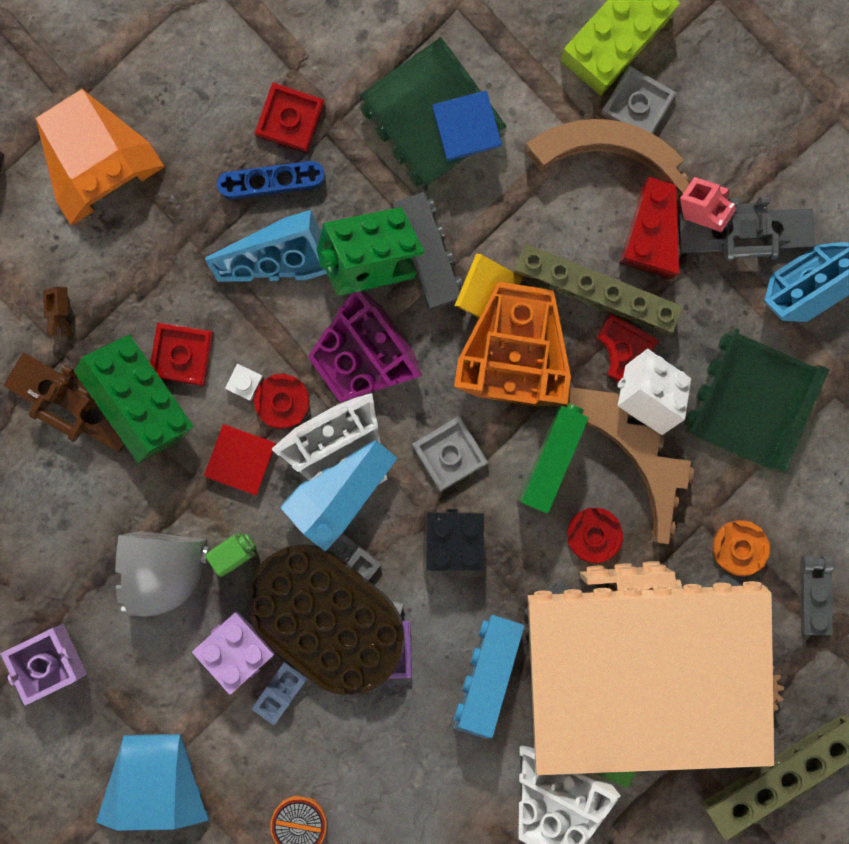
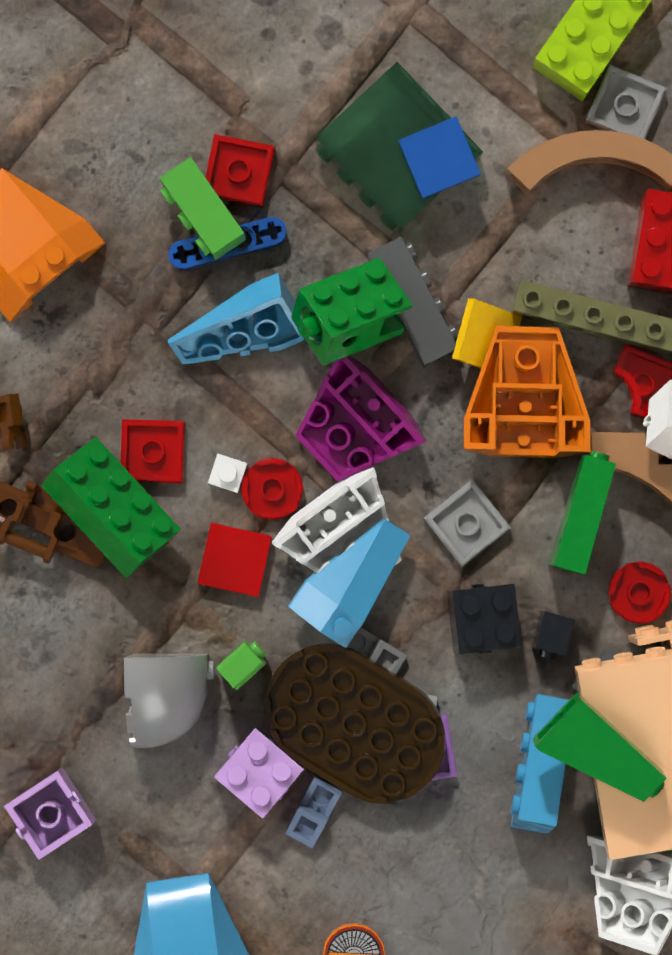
camera: 10 degrees left, 0 degrees up
(250, 145) = (201, 209): none -> bright green brick
(513, 563) = (553, 634): none -> black brick
(538, 675) = (597, 748): none -> green slope

